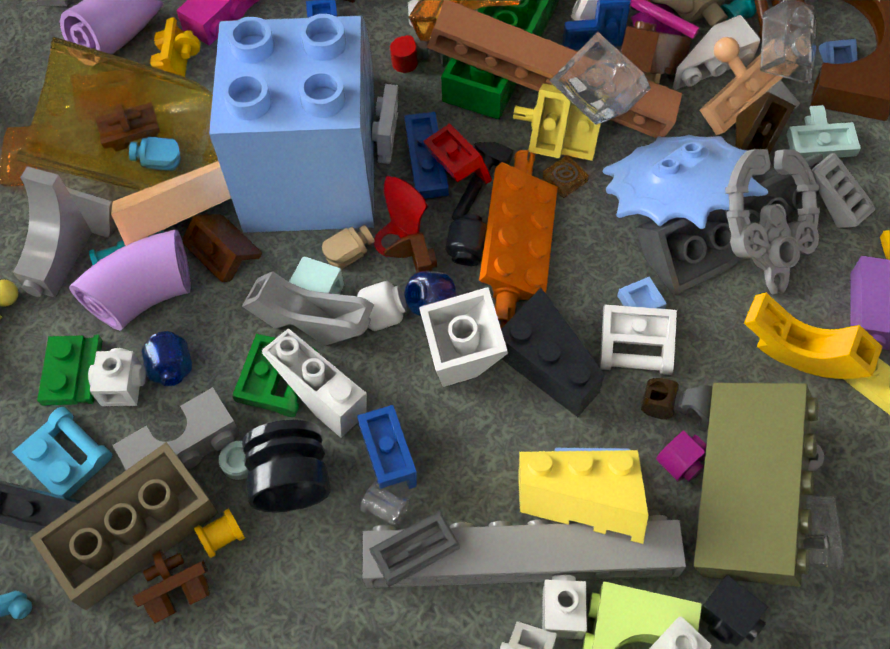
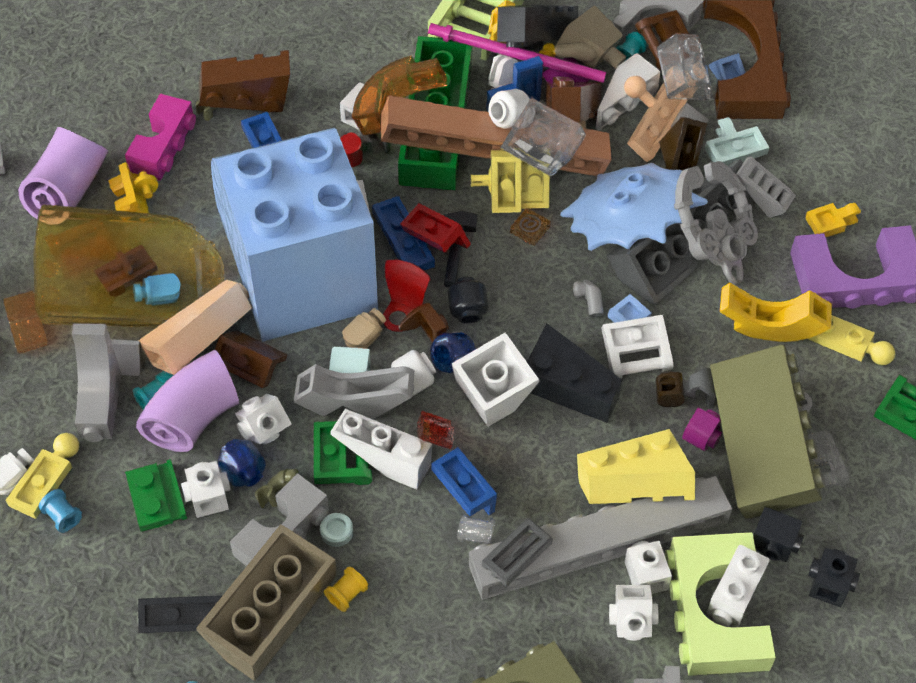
camera: 20 degrees left, 5 degrees down
(51, 461) = (174, 574): medium azure plate -> none
(156, 598) = (313, 652): reddish brown hips -> none
(179, 397) = (277, 482): none -> olive arm
(206, 305) = (262, 419): none -> white brick
(285, 466) = (386, 519): black wheel -> none
(377, 378) = (435, 430): none -> clear red slope
(518, 235) = (509, 283): orange plate -> none
(570, 37) = (507, 107): none -> white head
(608, 268) = (592, 294): none -> light grey arm

